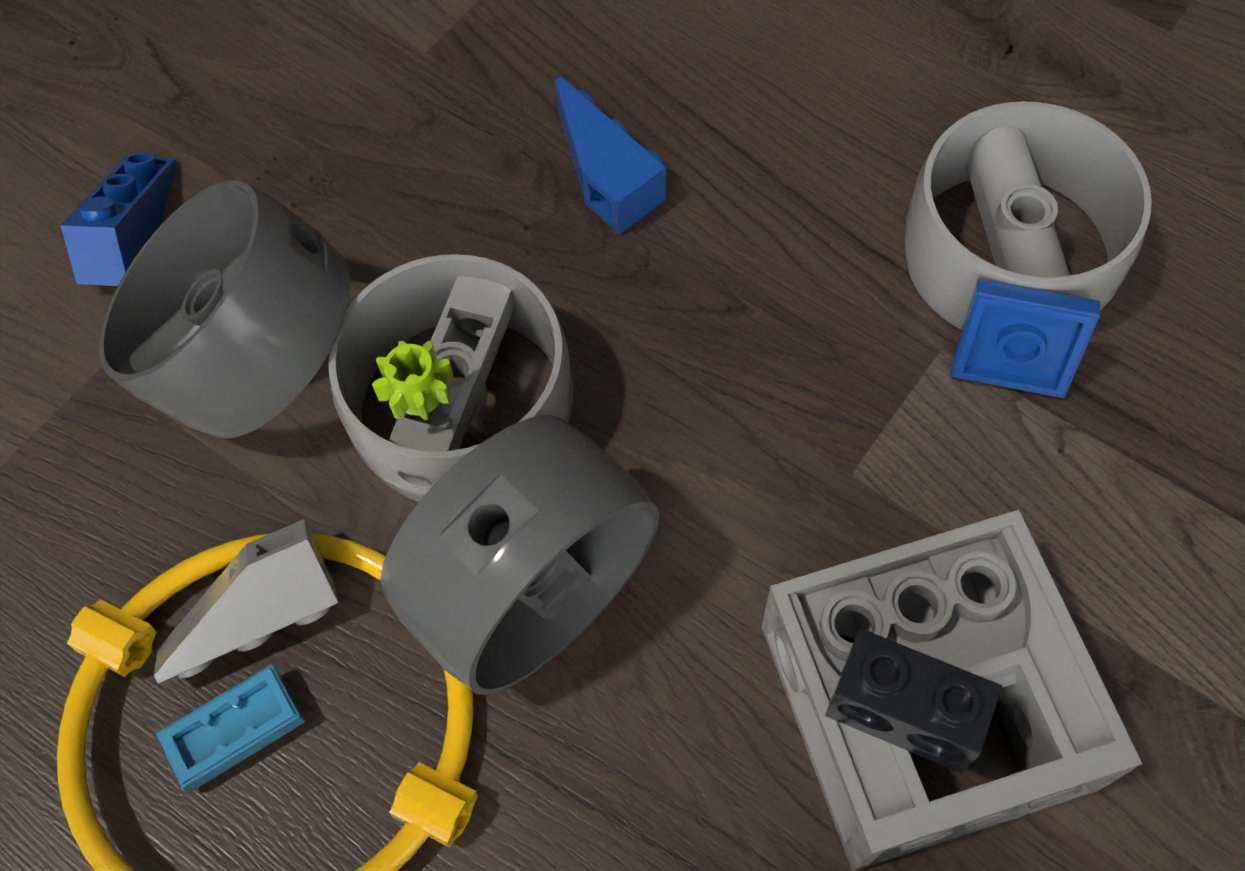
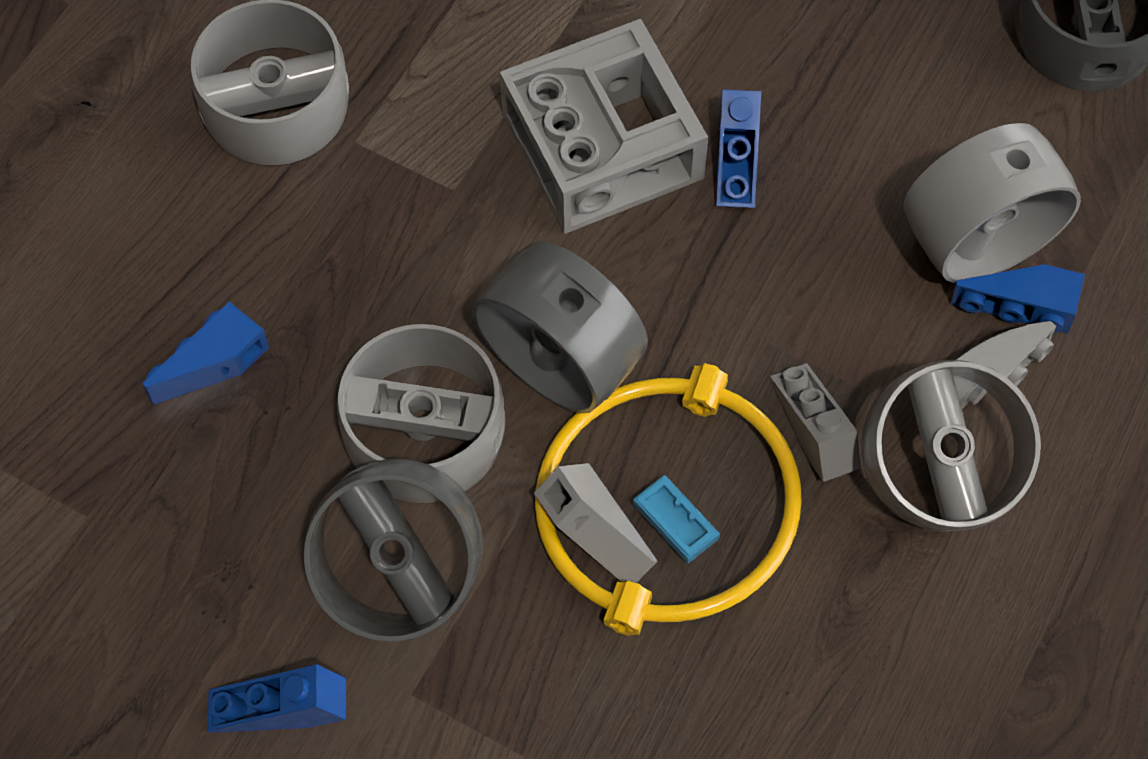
camera: 100 degrees left, 0 degrees up
(413, 380) = (452, 396): lime gear -> none
(914, 701) = (629, 111): black brick -> none
(1023, 338) = (363, 83): blue plate -> none

